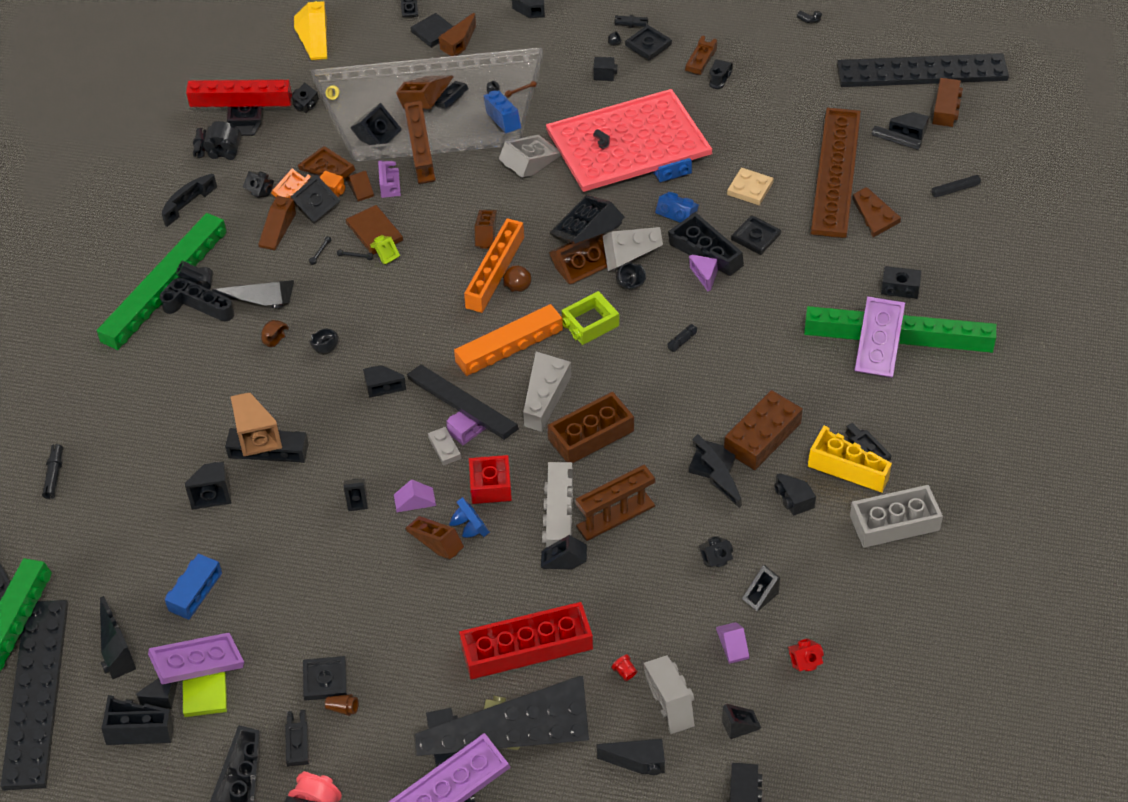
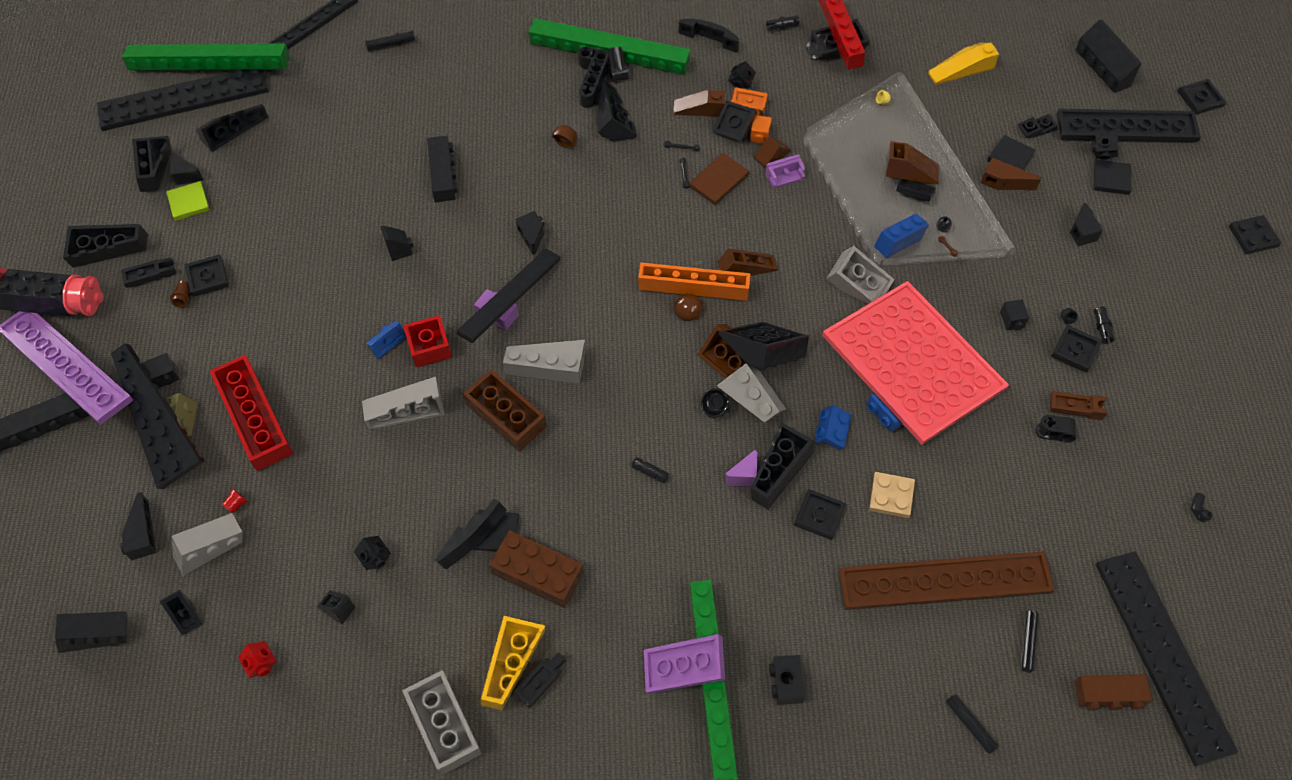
camera: 75 degrees right, 10 degrees up
(193, 586) = (287, 161): blue brick -> none
(195, 658) = (209, 181): medium lavender plate -> none
(209, 486) = (384, 140): black slope -> none
(222, 140) = (783, 34): black brick -> none
(254, 425) = (439, 143): medium nougat slope -> none
(305, 98) = (864, 78): black brick -> none
(324, 341) = (567, 176): black hair -> none
(326, 160) = (786, 120): reddish brown wing -> none
(376, 126) = (845, 143): black slope -> none
(385, 248) = (691, 191): lime bracket -> none
(414, 496) = (406, 292): medium lavender slope -> none
(419, 142) = (816, 166): reddish brown fence -> none
(436, 536) = (359, 316): reddish brown slope -> none
(444, 446) = (465, 301): light grey plate -> none
(508, 340) = (605, 318): orange brick -> none
(564, 554) = (354, 424): black slope -> none
(602, 306) = (663, 393): lime window -> none
(604, 139) = (892, 335): black arm -> none
(610, 493) = (406, 447): reddish brown fence -> none
(733, 642) = (276, 589): medium lavender slope -> none
(796, 494) = (460, 616): black slope -> none
(875, 212) = (896, 635): reddish brown wing -> none
(910, 124) = (1052, 653): black slope -> none

